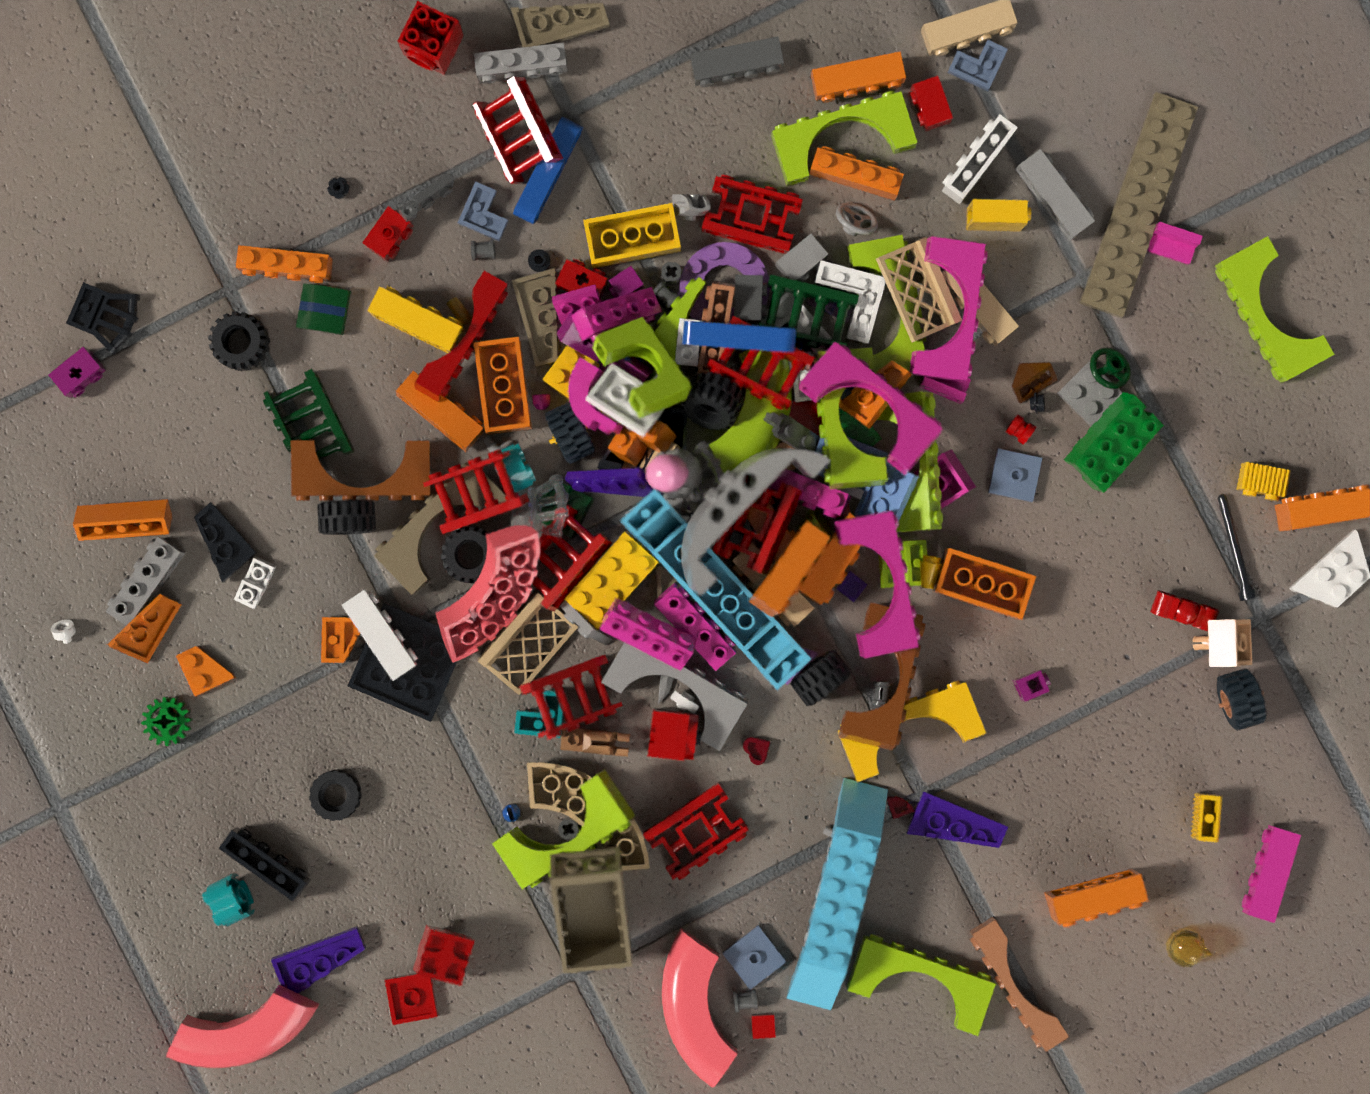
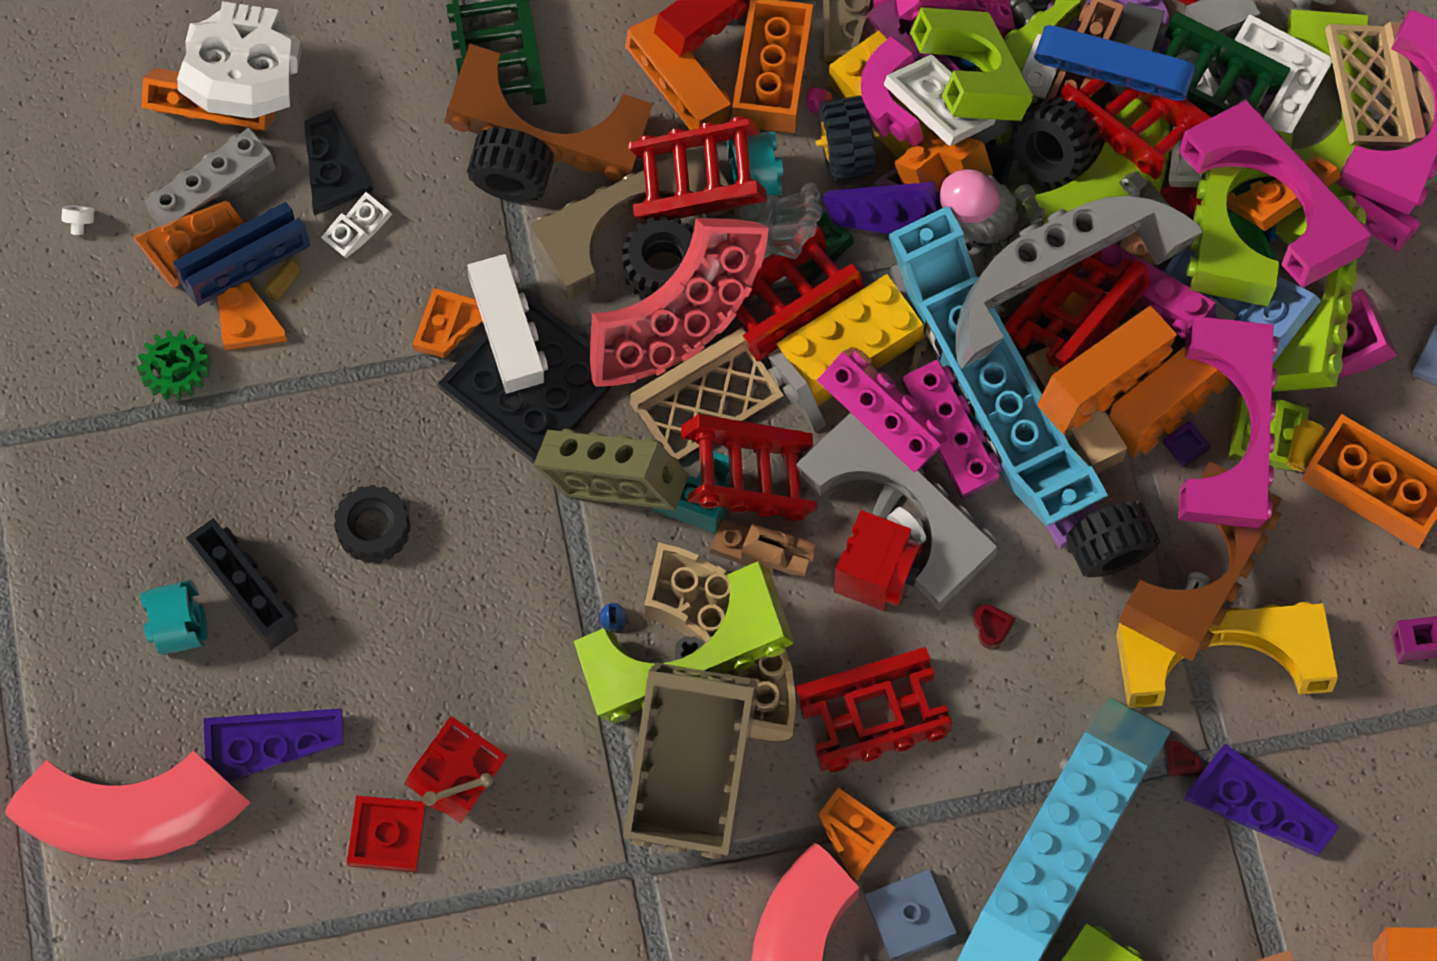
camera: 15 degrees right, 20 degrees down
(137, 513) = (241, 43): none -> white brick
(184, 630) = (241, 254): none -> dark blue brick
(218, 637) = (282, 280): none -> clear yellow piece
(434, 988) = (430, 797): none -> dark tan hinge
(482, 725) = (611, 469): none -> olive brick
(705, 915) = (853, 832): none -> orange wing

